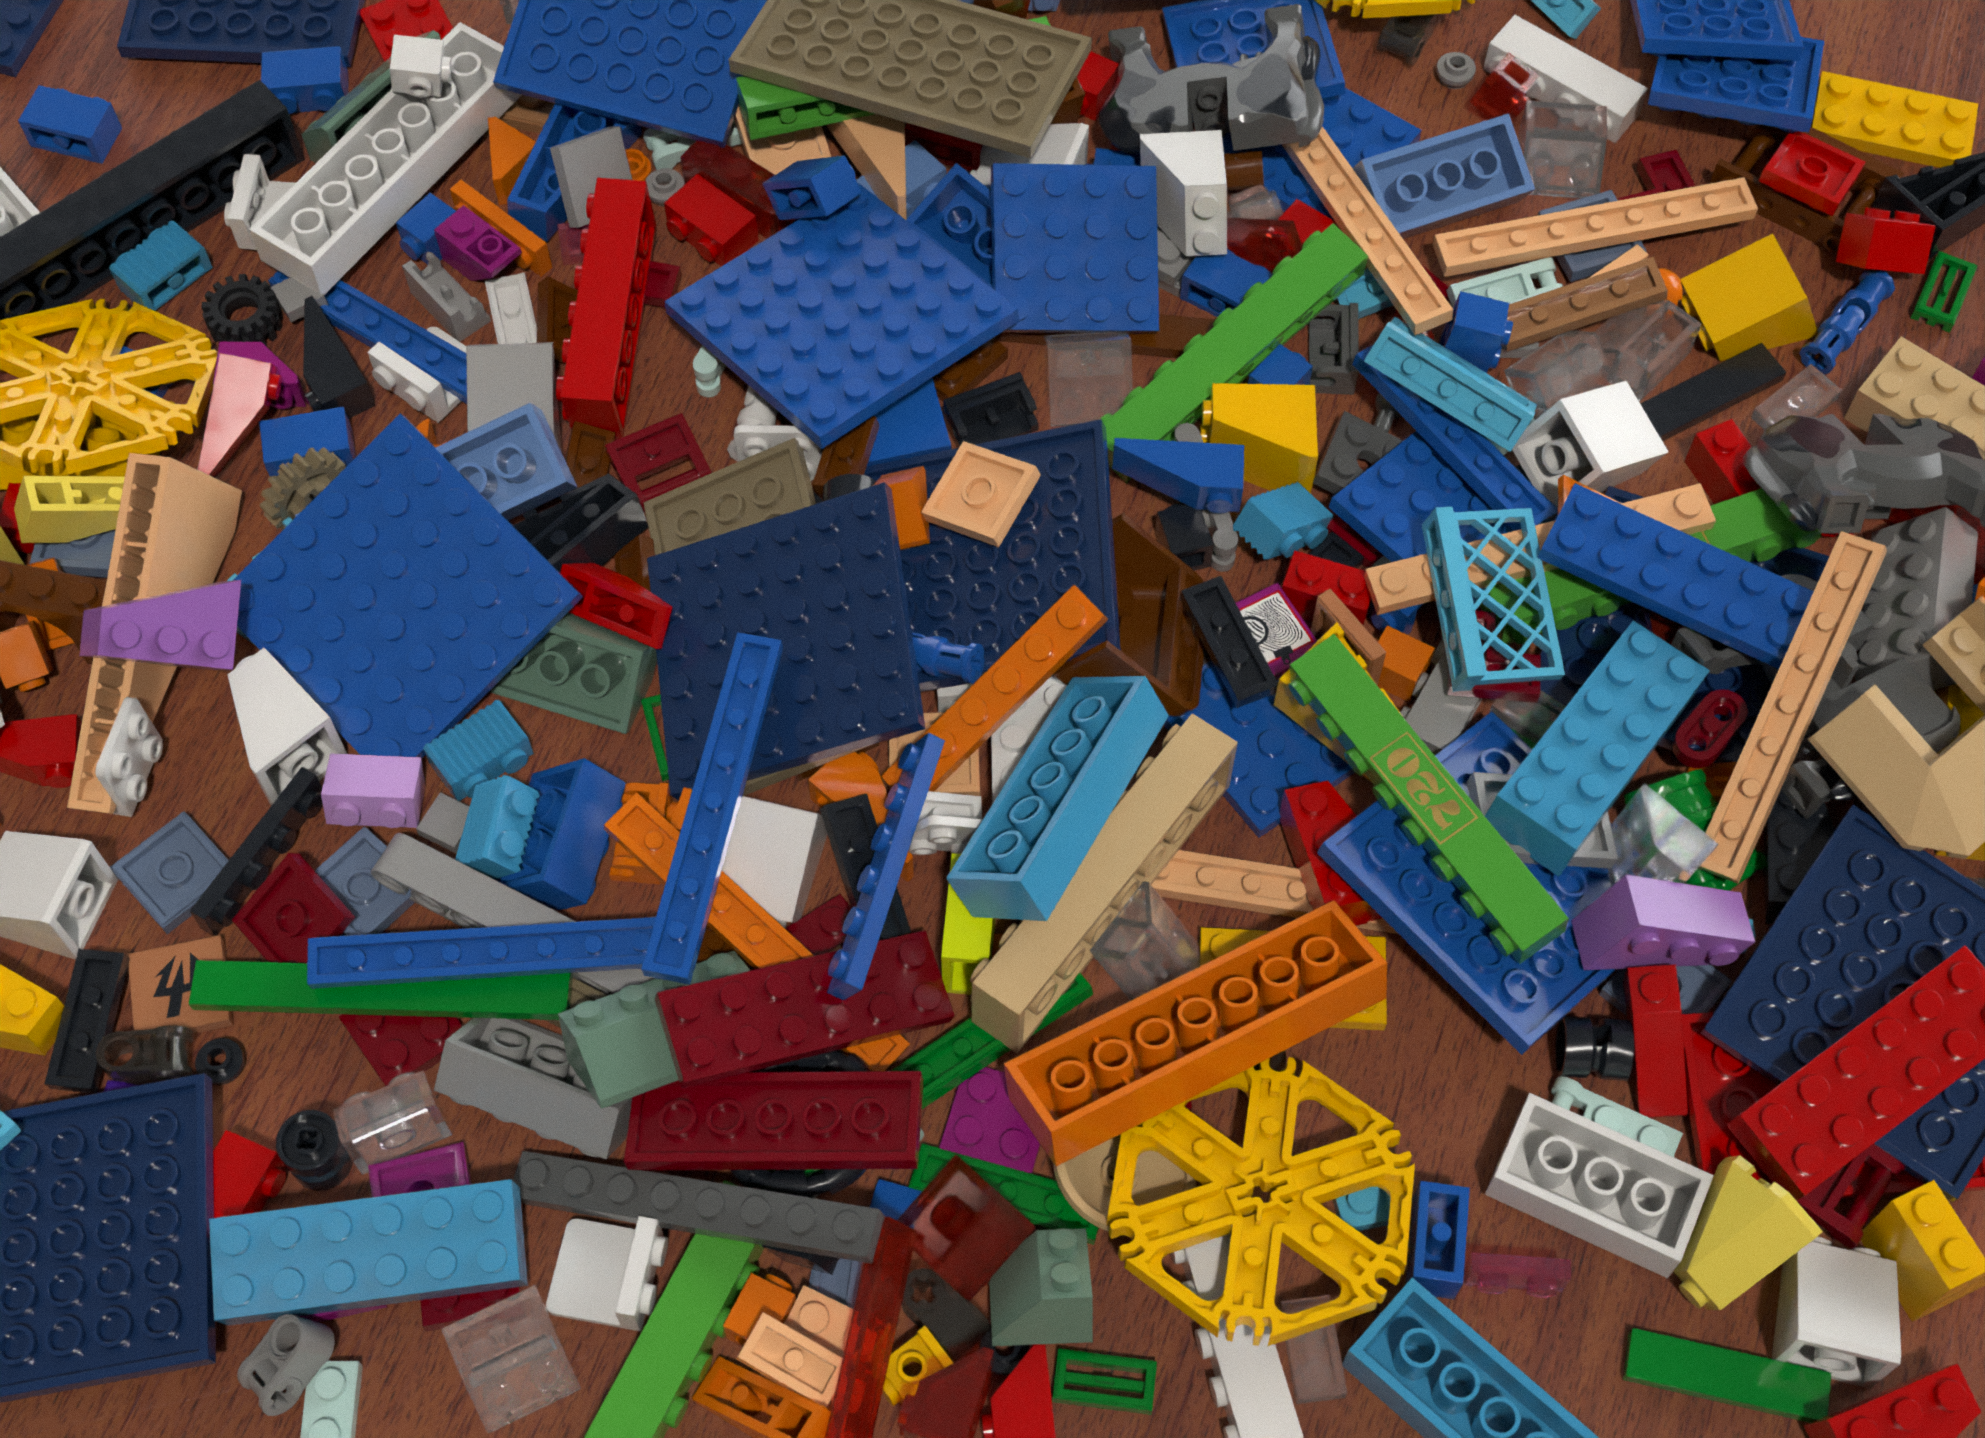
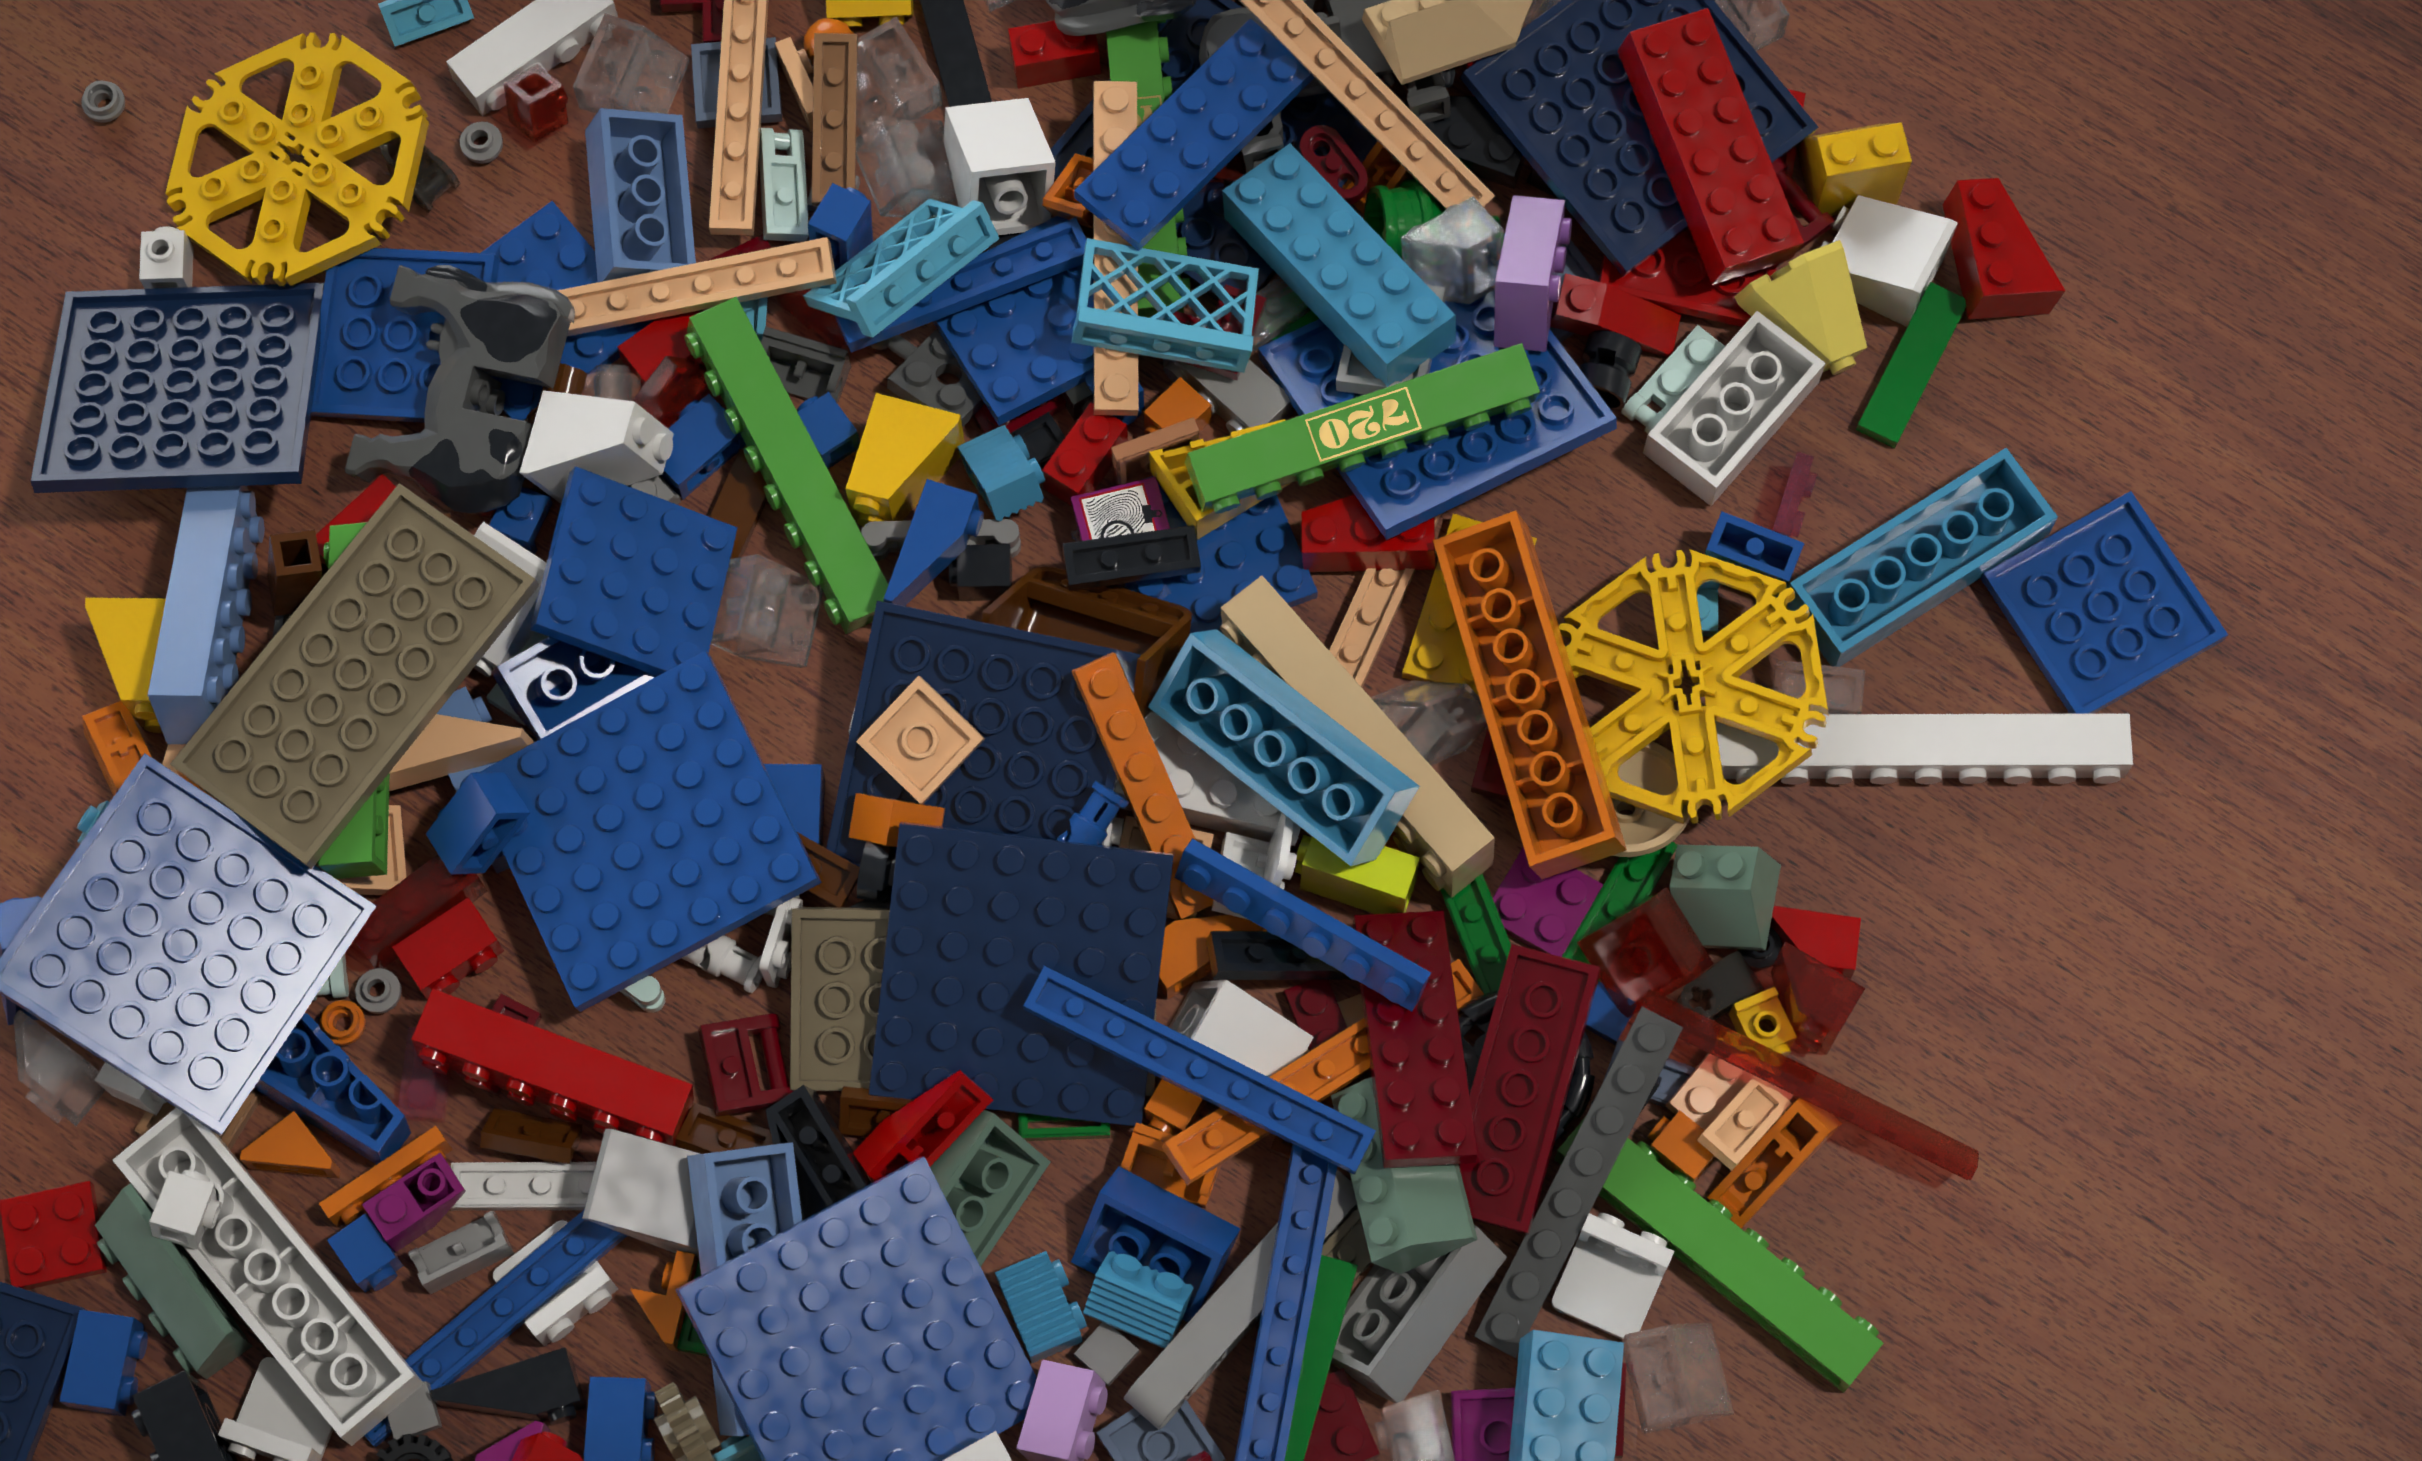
camera: 75 degrees left, 10 degrees up
(580, 164) = (367, 1055): light grey tile -> none
(991, 412) = (783, 718): black hinge -> none
(1104, 1401) = (1817, 834): green tile -> none

